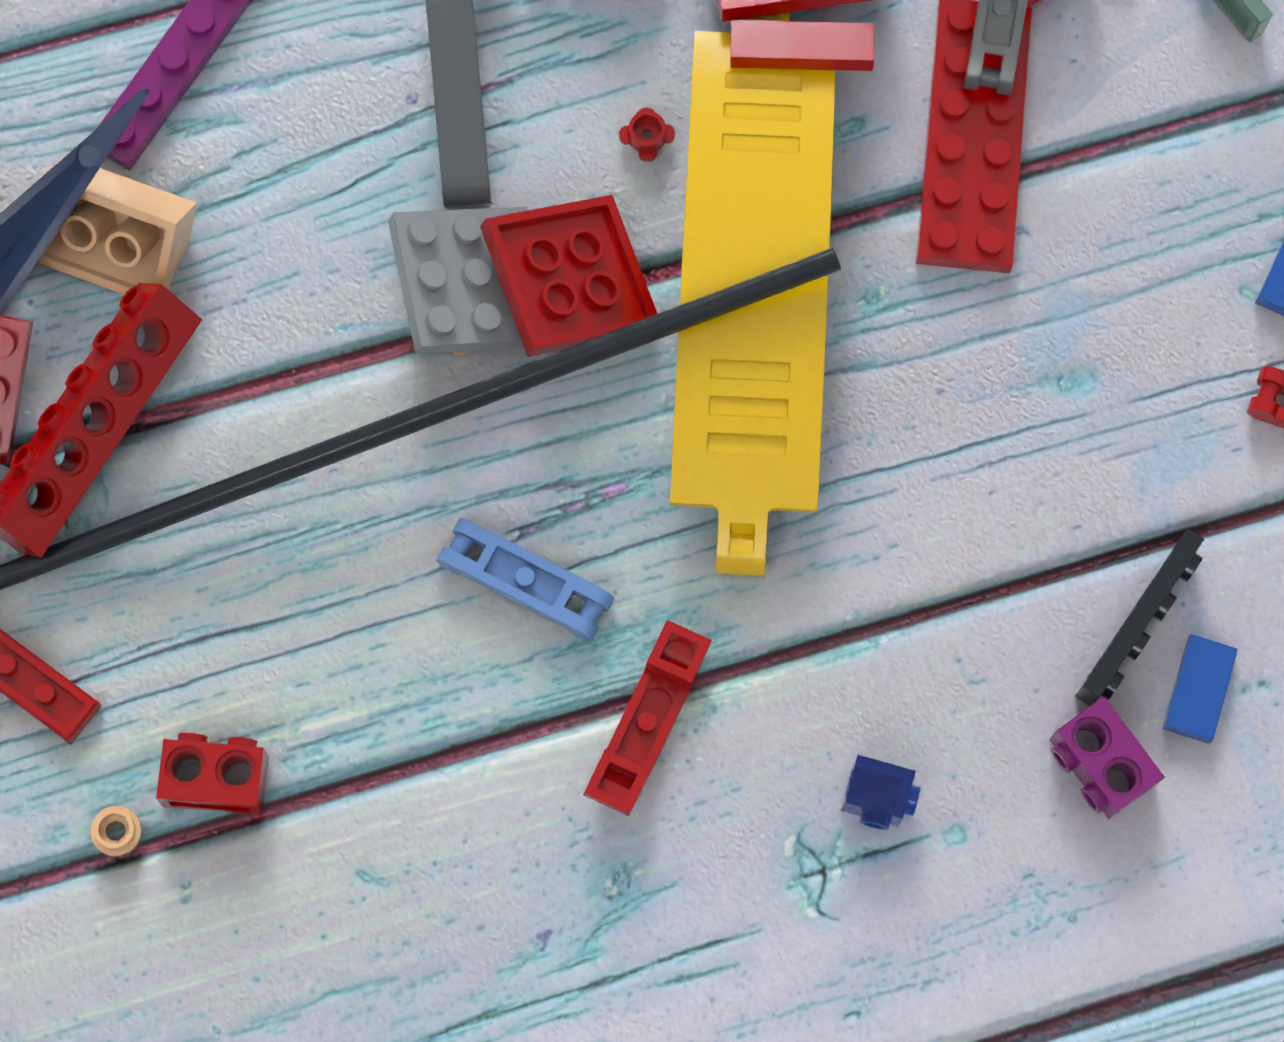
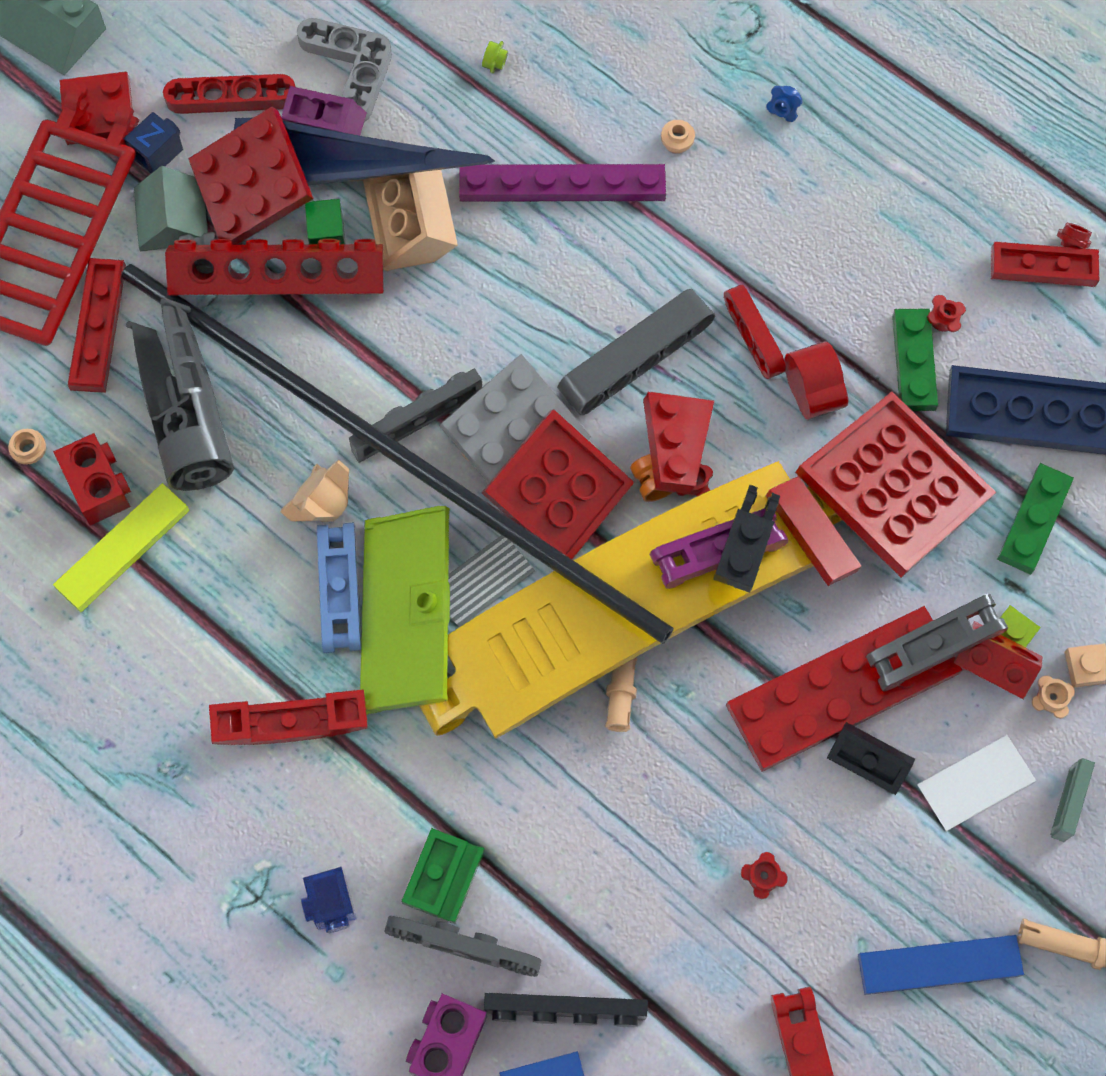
camera: 60 degrees right, 5 degrees down
(64, 332) = (324, 220): none -> green brick
(262, 630) = (181, 405): none -> dark grey piece
(316, 792) = (121, 547): none -> neon yellow tile
(374, 355) = (426, 409): none -> dark grey plate
(406, 533) = (321, 496): none -> light nougat piece
(596, 118) = (676, 438): none -> red wing
(603, 519) = (405, 609): none -> lime door
(613, 425) = (485, 579): none -> light grey sticker
(619, 171) = (643, 472): none -> orange wheel
(767, 147) = (702, 552): none -> magenta plate
(785, 112) = (746, 543): none -> black hinge
(851, 365) = (620, 695): none -> light nougat pin
(924, 659) = (443, 876): none -> green plate
(996, 695) = (481, 948): none -> dark grey plate
(1068, 155) = (871, 758): none -> black plate
(1132, 329) = (767, 864): none -> red plate
(1152, 74) = (976, 782): none -> white sticker

